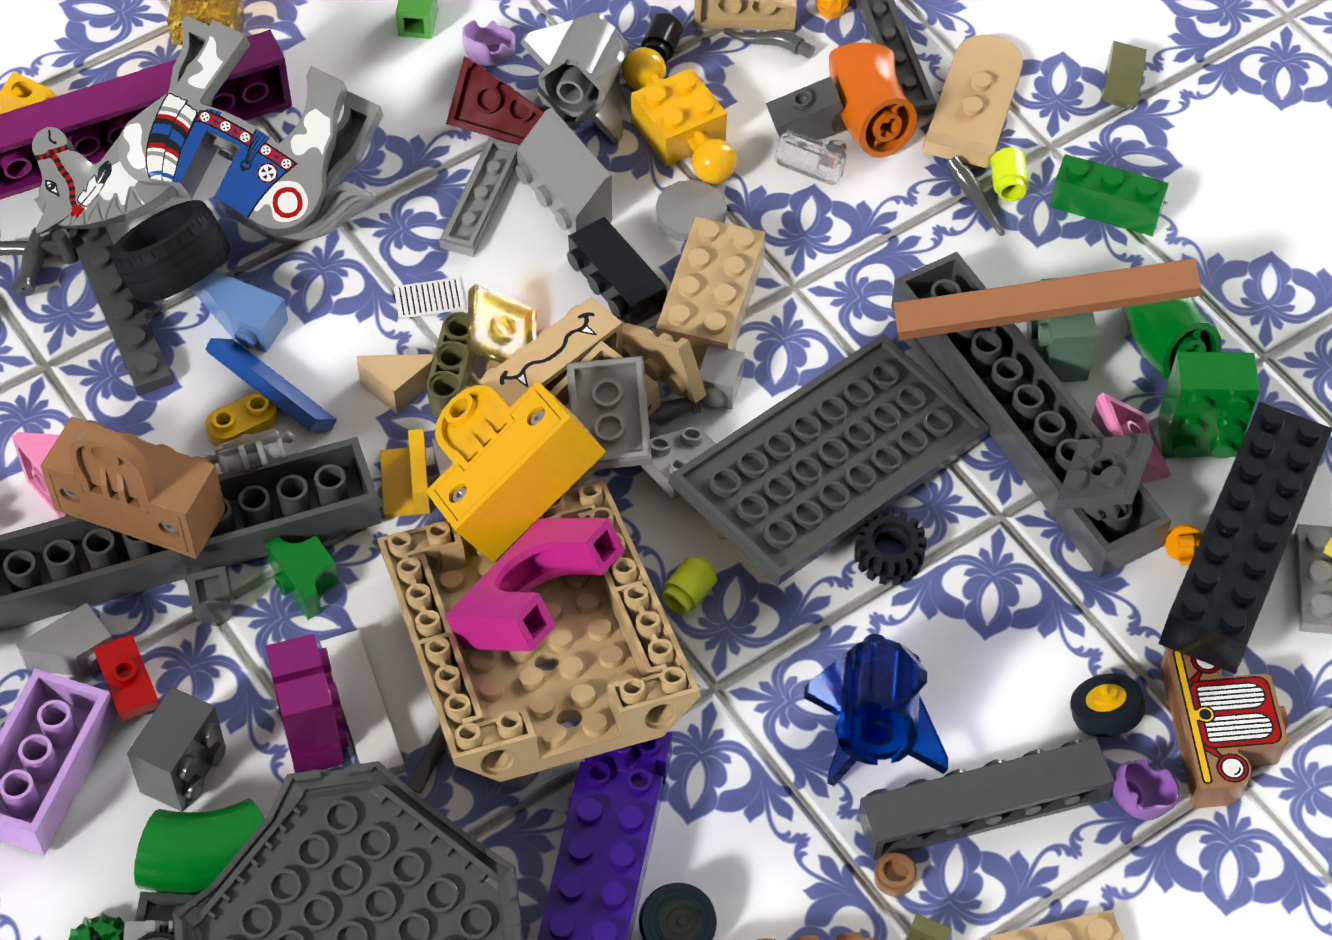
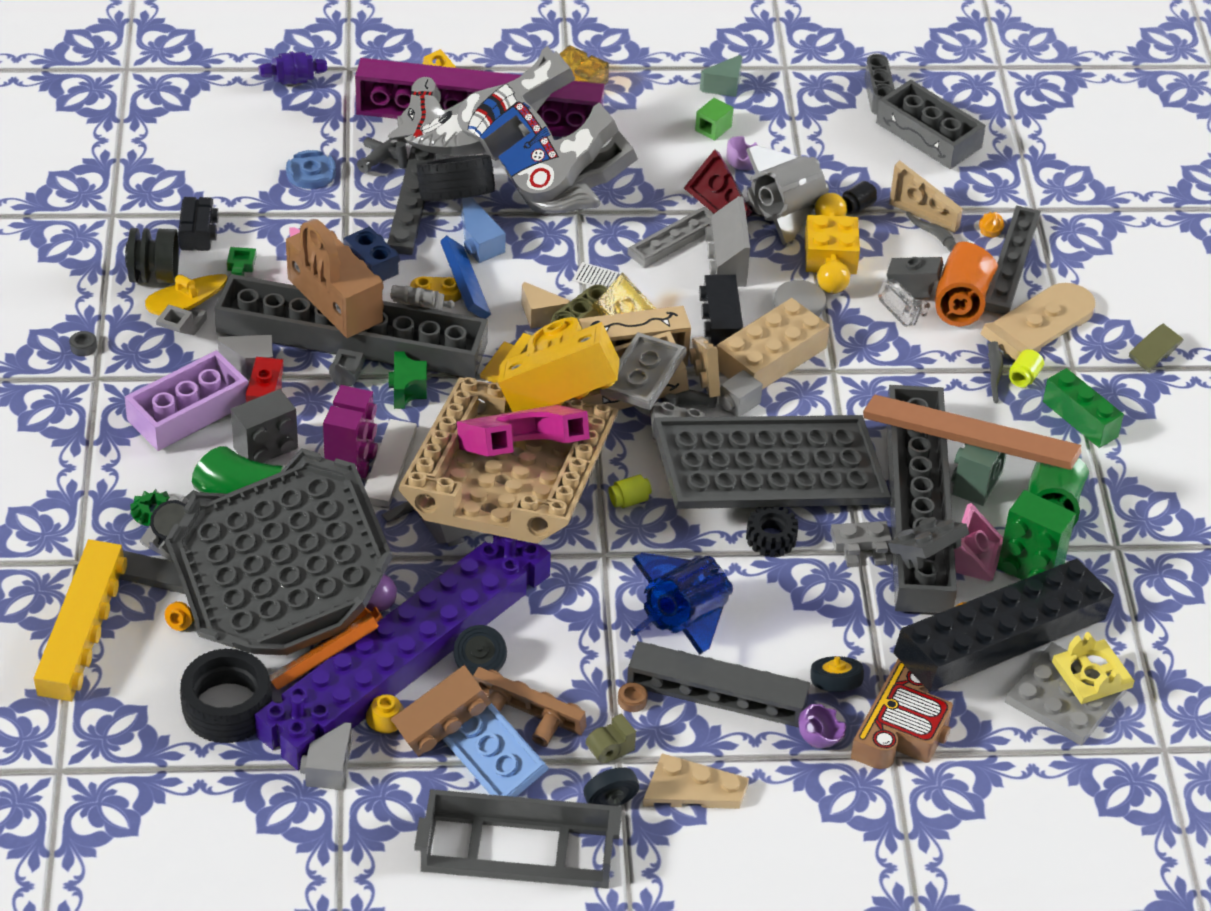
camera: 30 degrees right, 10 degrees down
(126, 408) = (375, 252): none -> dark blue brick
(993, 495) = (861, 536): none -> light grey plate

